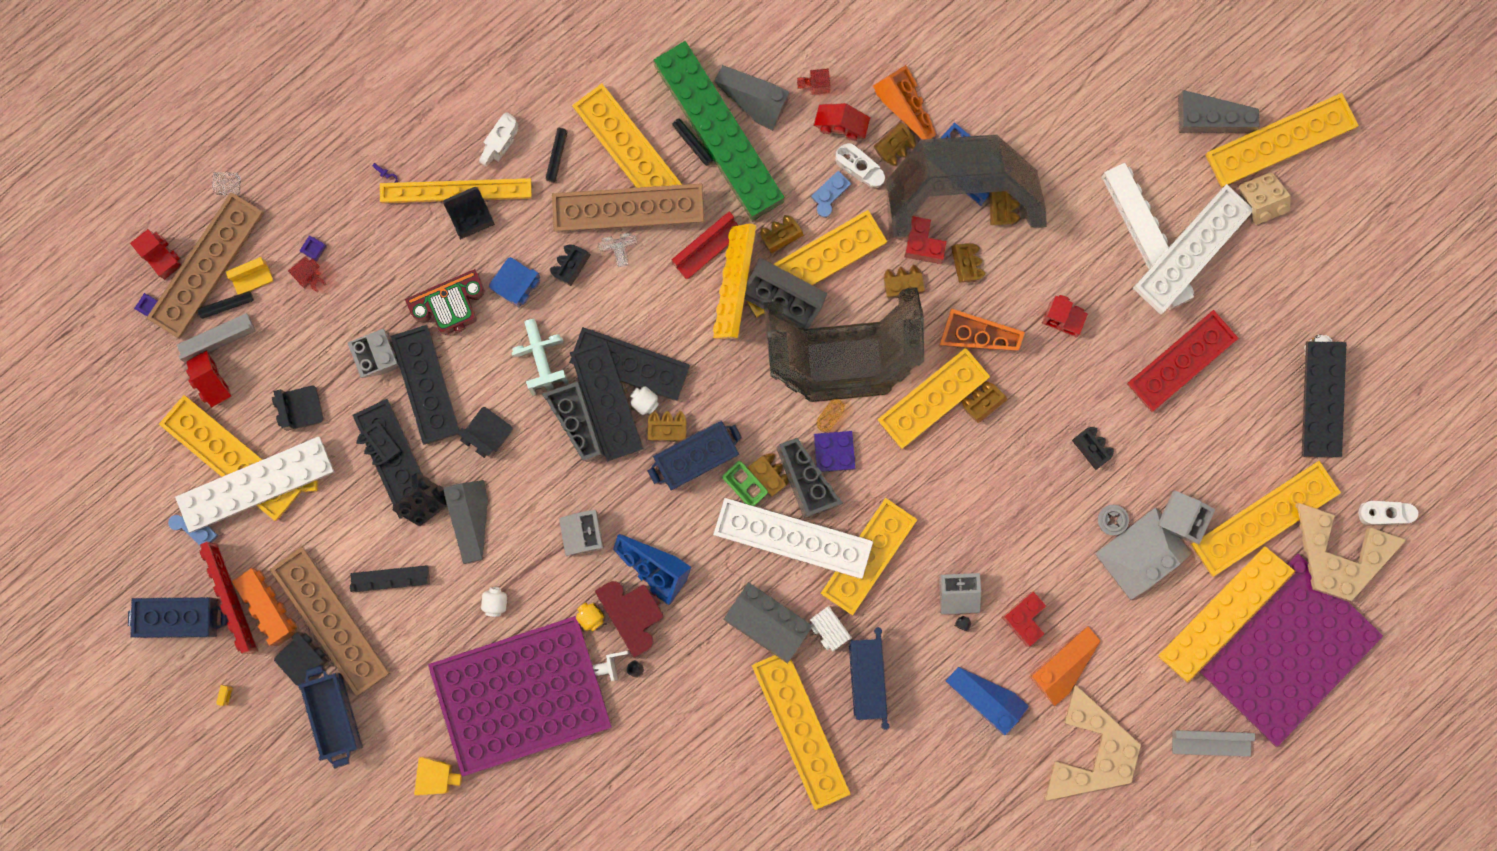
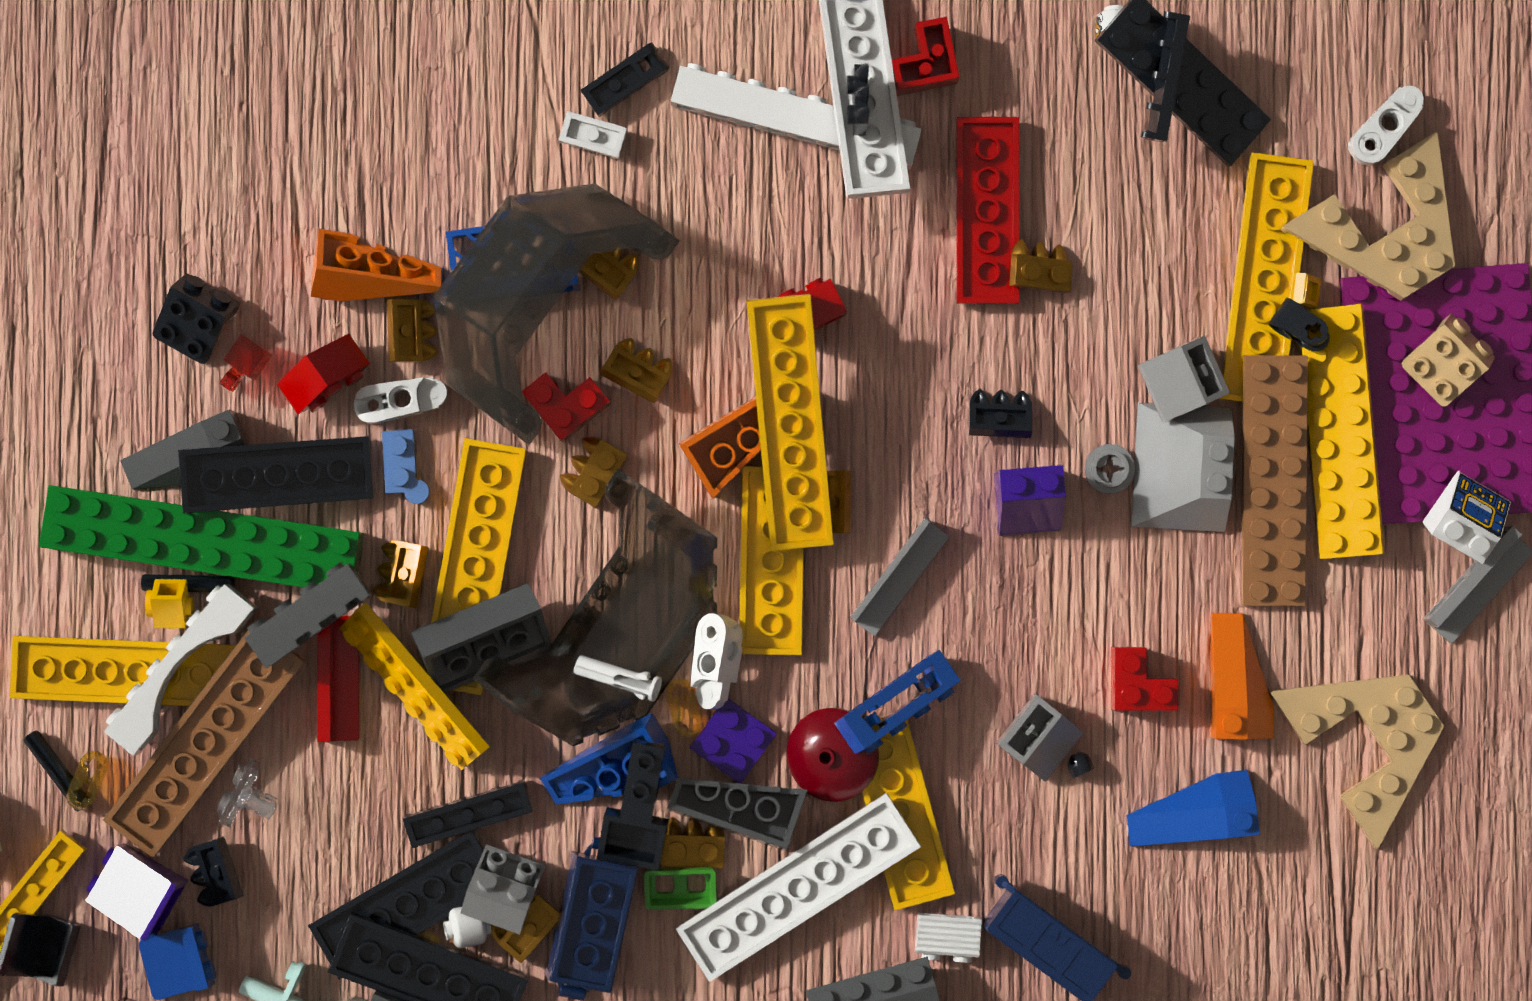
camera: 50 degrees left, 5 degrees up
(532, 235) = (135, 891): none -> slope
(565, 175) = (93, 783): none -> clear yellow beam
(611, 170) = (140, 717): none -> white arch
(675, 401) = (502, 889): none -> light grey slope
(676, 140) = (169, 603): none -> yellow brick
(696, 357) = (467, 814): none -> black hinge
(728, 203) = (308, 615): none -> dark grey wedge
(753, 438) = (632, 832): none -> black plate
(777, 137) = (275, 474): none -> black plate
(781, 409) = (605, 765): none -> blue wedge
(816, 42) = (193, 317): none -> black bracket
(819, 372) = (619, 677): none -> white piece
(866, 410) = (715, 659): none -> white piece
(876, 511) = (844, 775): none -> dark red dish
(891, 502) = (937, 676): none -> blue brick
(977, 463) = (899, 577): none -> light grey panel
(1007, 349) = (790, 422): none -> yellow plate
(1057, 151) = (592, 135): none -> white plate
(1067, 492) = (1030, 499): none -> dark purple slope
(1095, 144) = (624, 80): none -> black plate
(1176, 601) = (1274, 480): none -> medium nougat plate
(1177, 258) = (859, 89): none -> black plate
(1177, 409) = (1038, 270): none -> pearl gold plate
(1225, 277) = (934, 64): none -> red brick
(1240, 708) = (1468, 517): none -> slope
(1259, 548) = (1295, 324): none -> black piece
(1277, 541) = (1307, 290): none -> yellow tile
(1305, 635) = (1449, 360): none -> tan bracket
(1320, 387) = (1167, 77): none -> black hinge

